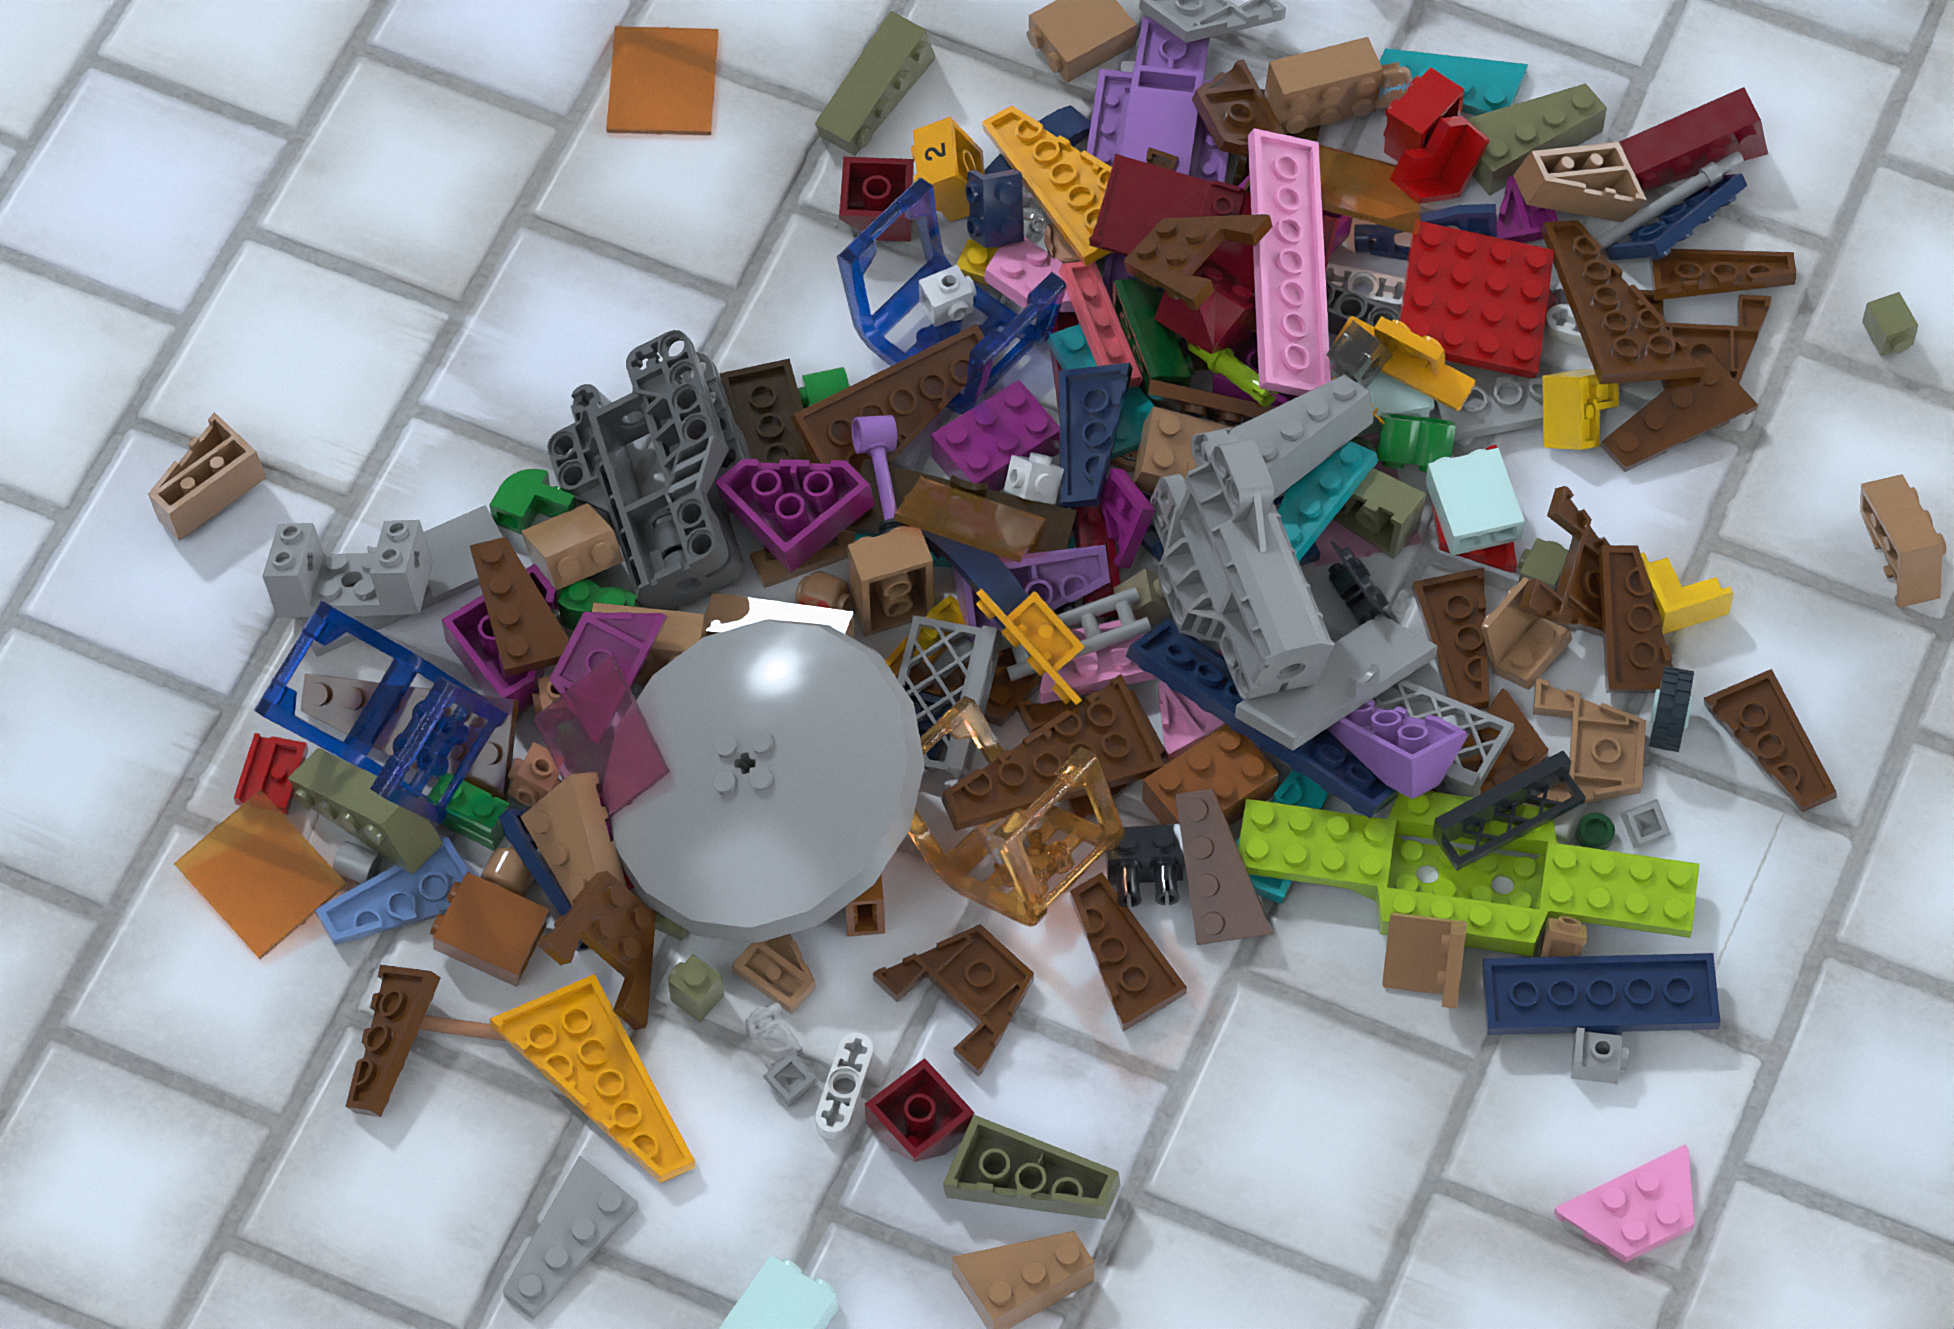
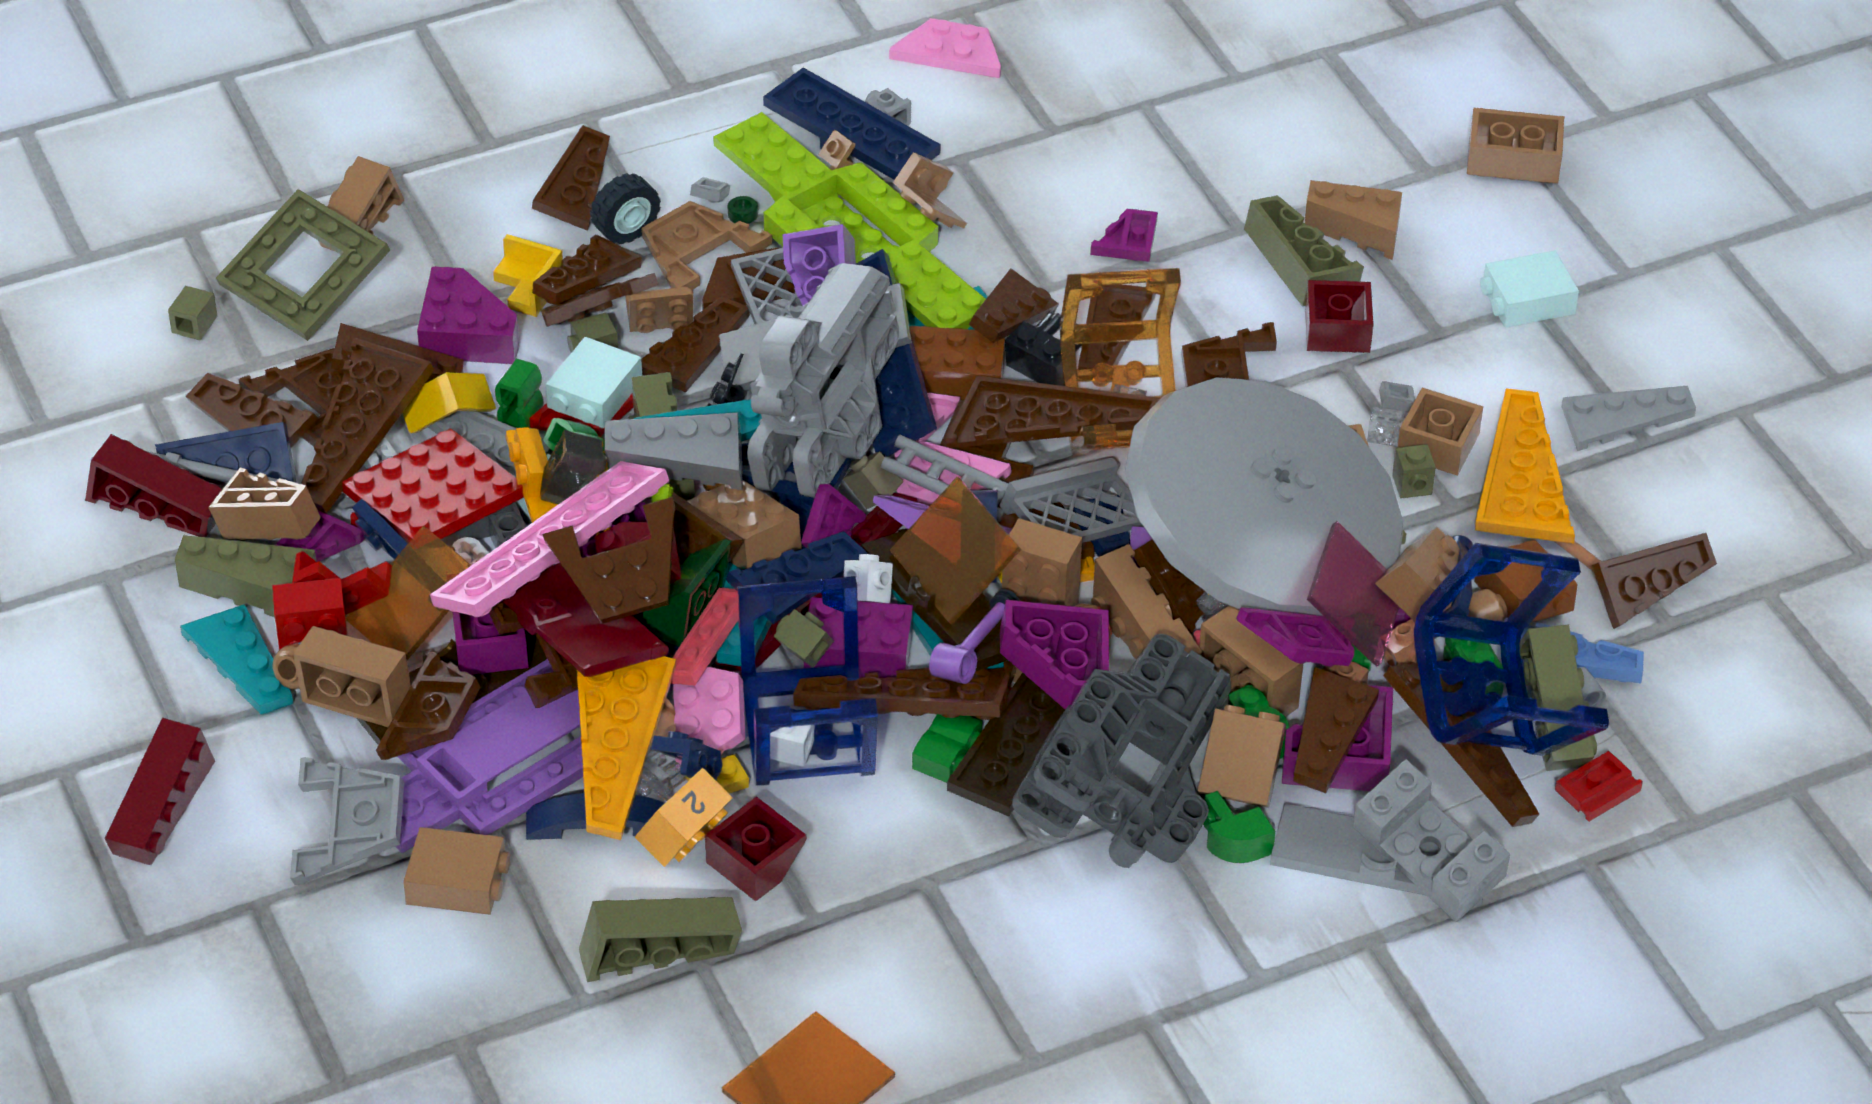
camera: 140 degrees left, 15 degrees down
(206, 479) = (1479, 1005): medium nougat wedge -> none
(260, 874) = (1662, 728): clear orange piece -> none
(618, 931) = (1457, 502): reddish brown wing -> none
(707, 1046) = (1446, 425): none -> medium nougat brick
(847, 1102) = (1346, 385): white beam -> none
(1018, 367) = (803, 636): none -> olive brick
(1041, 635) = (988, 466): light orange bracket -> none
(1213, 1081) = (1128, 237): none -> magenta wing
(1501, 799) = (794, 212): black fence -> none
(1519, 442) = (519, 394): none -> green brick
(1671, 499) = (466, 319): none -> magenta brick
(1909, 401) = (306, 314): none -> olive plate

